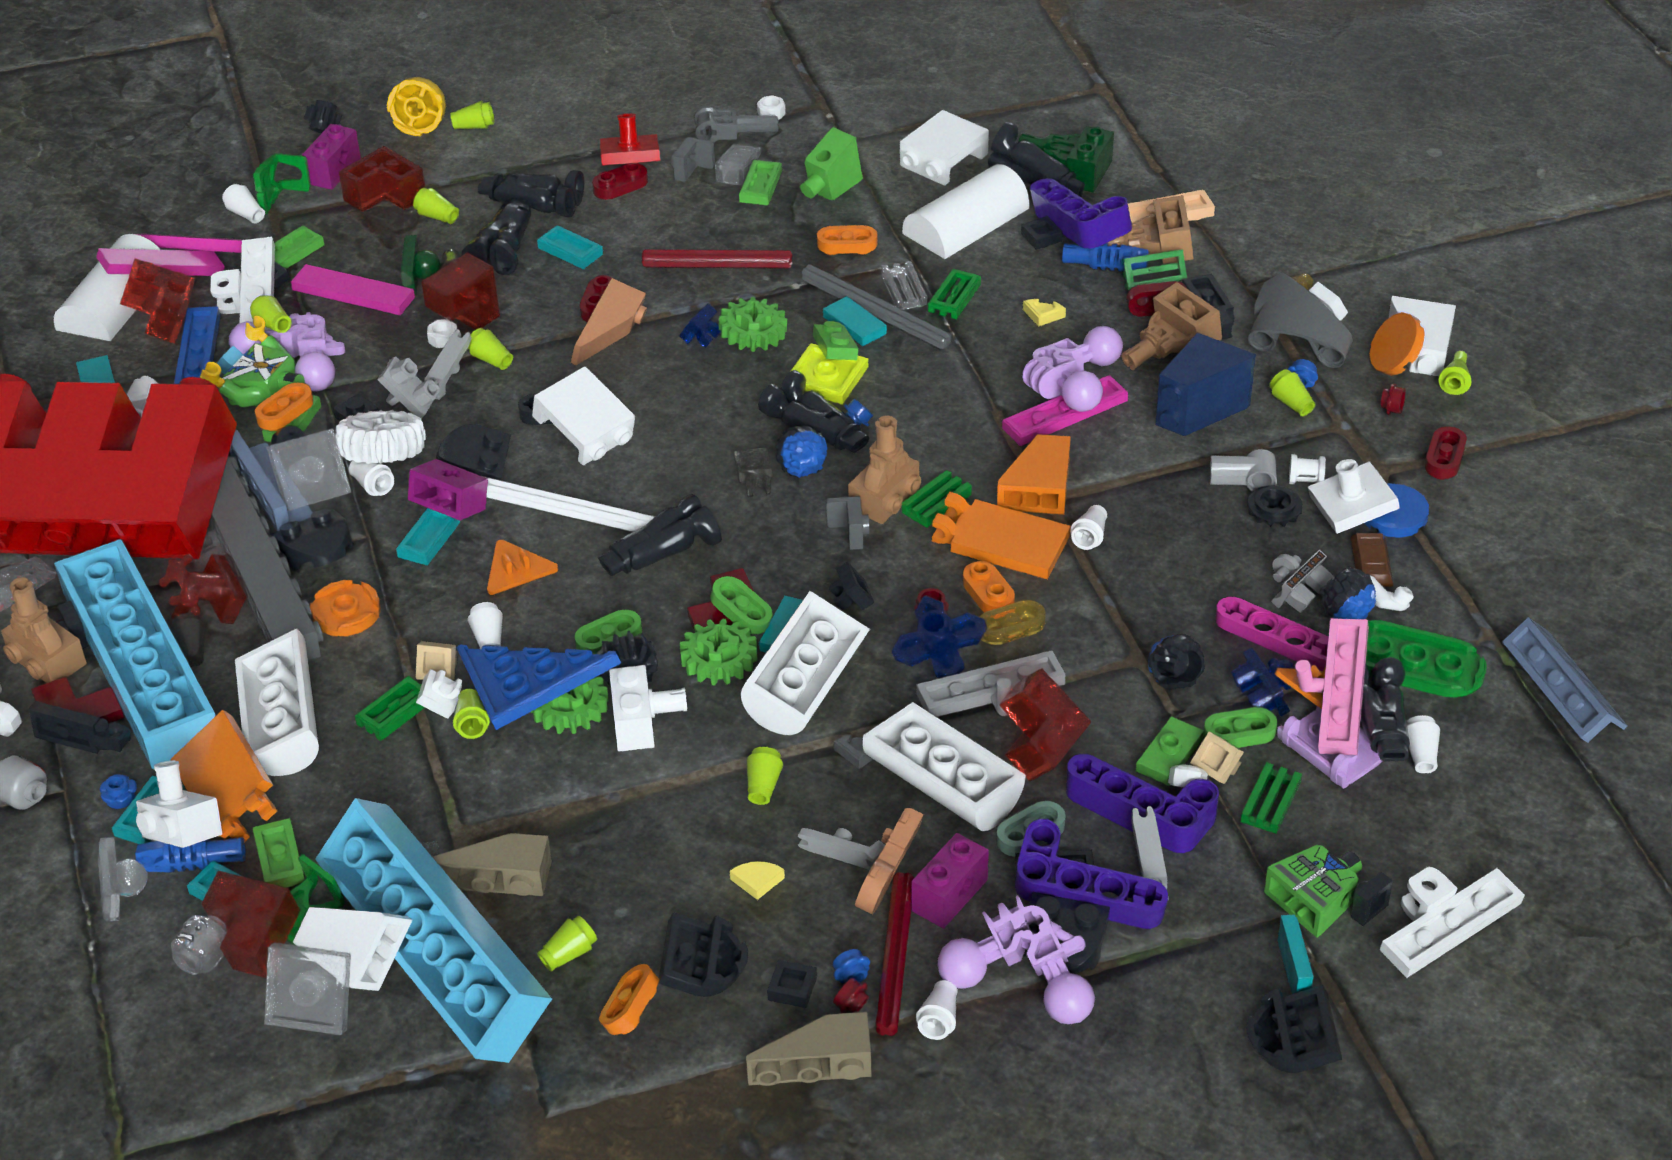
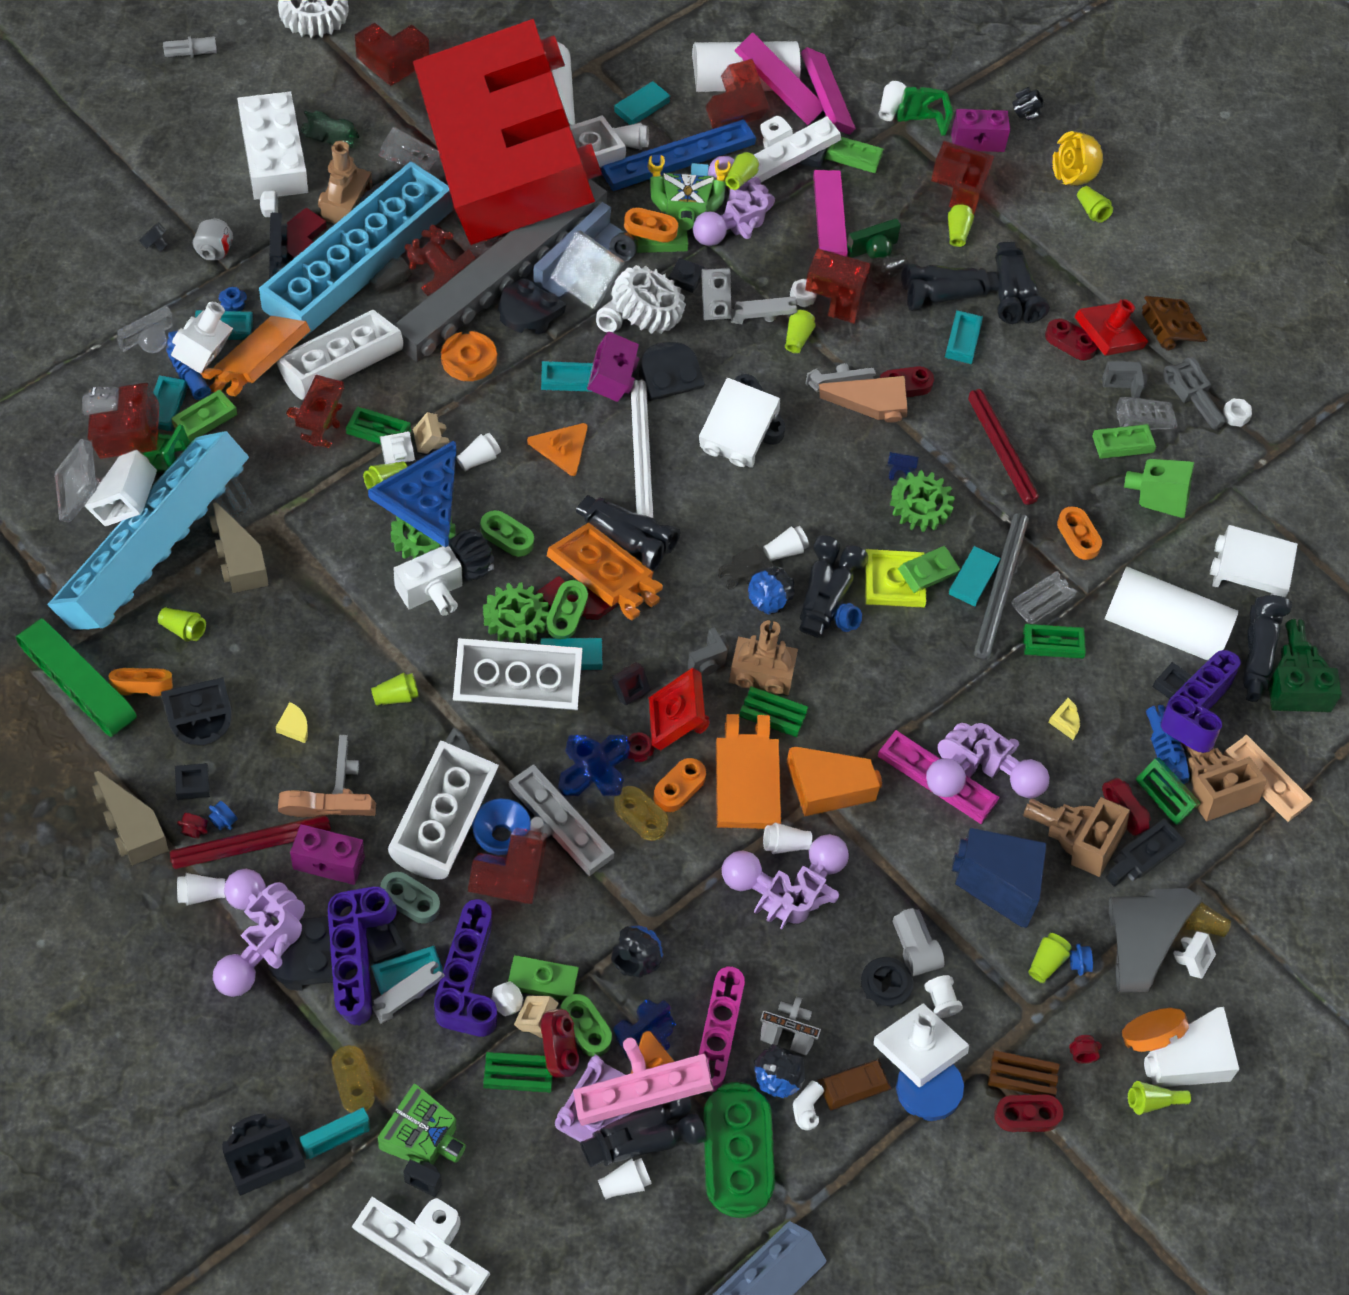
camera: 60 degrees right, 15 degrees up
(362, 731) = (319, 410): none -> clear red piece
(566, 338) = (843, 374): none -> light grey piece
(587, 1063) = (76, 677): none -> green beam
(657, 110) = (1171, 321): none -> reddish brown hinge
(700, 565) = (606, 569): none -> orange tile
(747, 427) = (787, 544): none -> white cone
(912, 551) = (678, 709): none -> red tile
(984, 719) = (498, 814): none -> blue piece
(1117, 848) = (396, 970): none -> teal tile
(1156, 536) = (827, 856): none -> lavender piece
(1229, 935) = (352, 1077): none -> clear yellow plate
(1245, 737) = (559, 1043): none -> dark red plate
(1402, 429) = (1023, 1062): none -> reddish brown tile

